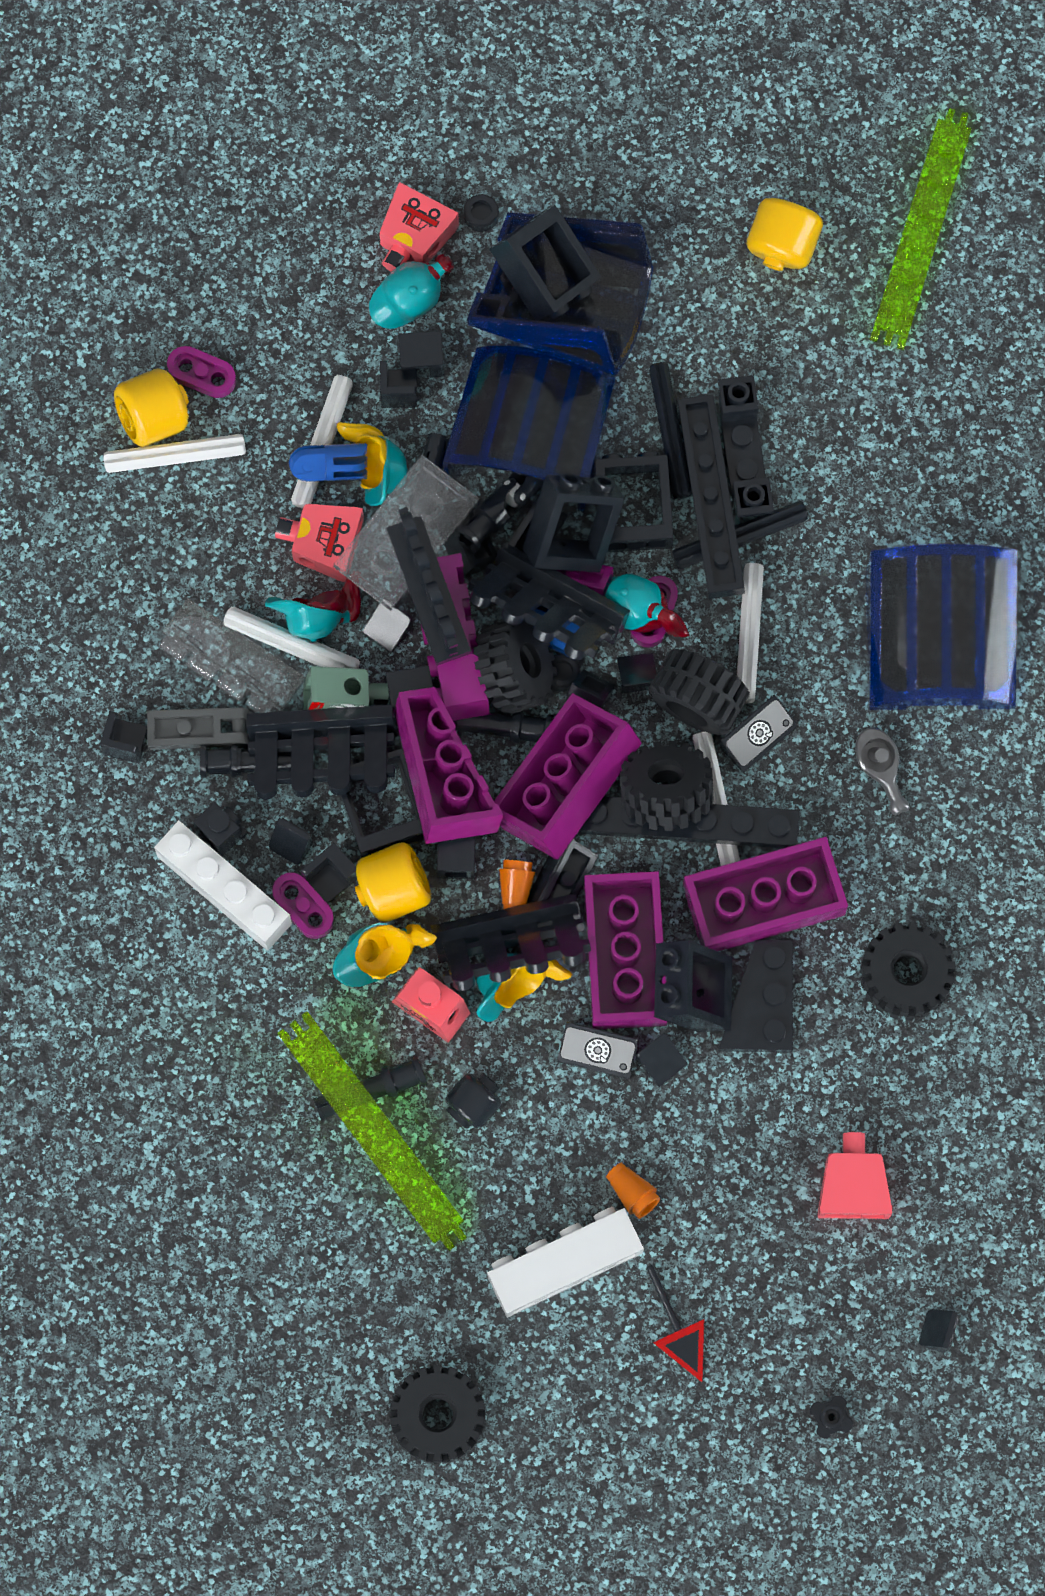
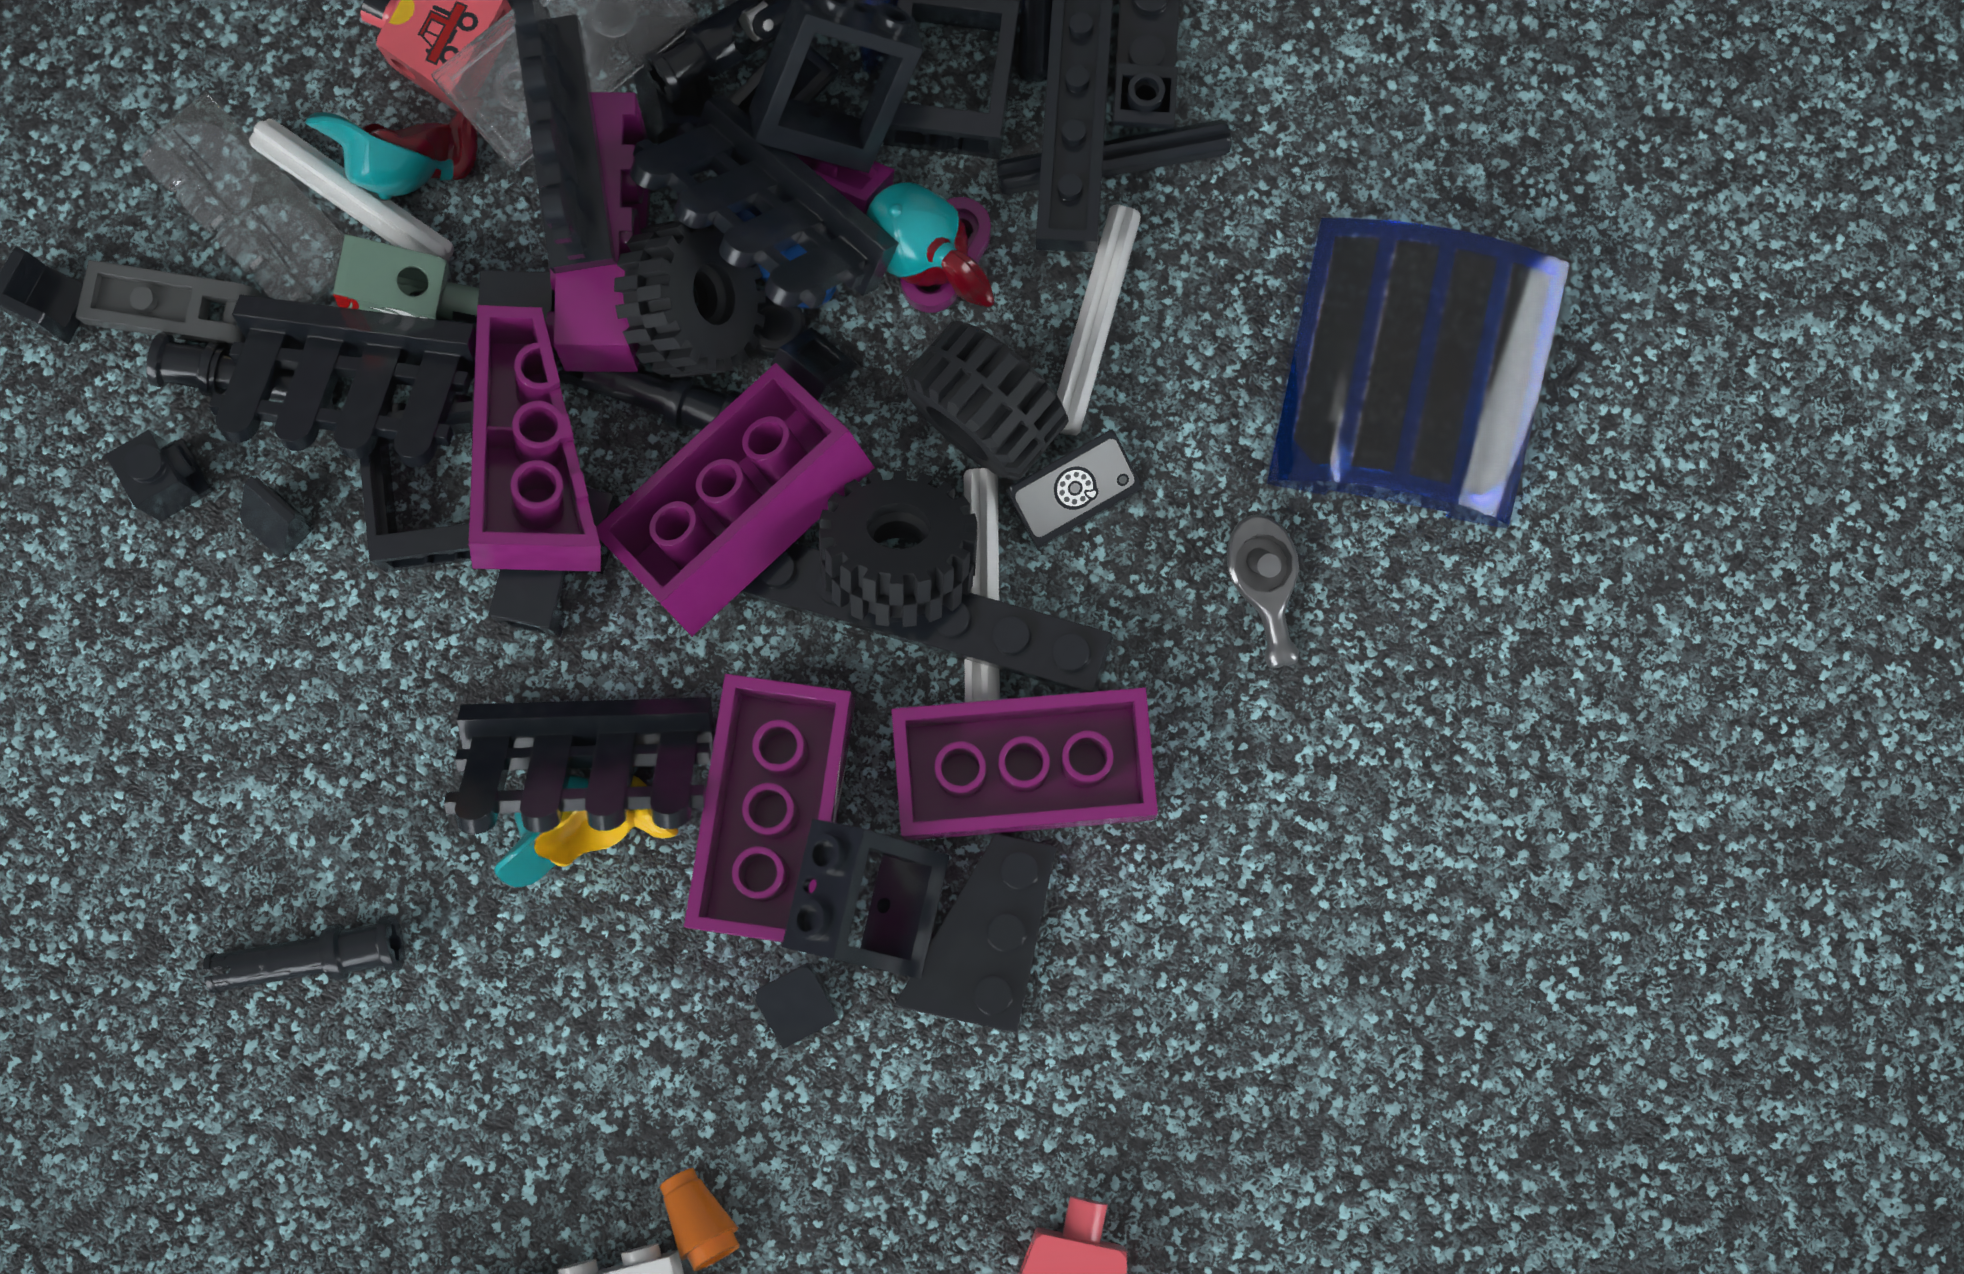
camera: 15 degrees right, 5 degrees up
(223, 885) = (140, 571): white brick -> none
(304, 905) = (267, 632): magenta plate -> none
(330, 873) = (322, 583): black panel -> none
(374, 1131) = (286, 1034): clear neon green hinge -> none
(378, 952) = (358, 734): yellow hair -> none
(388, 627) = (509, 200): slope -> none
(392, 882) = (415, 620): yellow head -> none
(432, 1004) = (429, 841): coral torso -> none
(473, 1100) = (466, 1013): black head -> none
(515, 882) = (620, 659): orange cone -> none
(563, 875) = (699, 663): black slope -> none
(597, 1050) = (693, 968): slope -> none
(636, 672) = (894, 347): black slope -> none
(902, 998) = (1286, 928): black tyre -> none

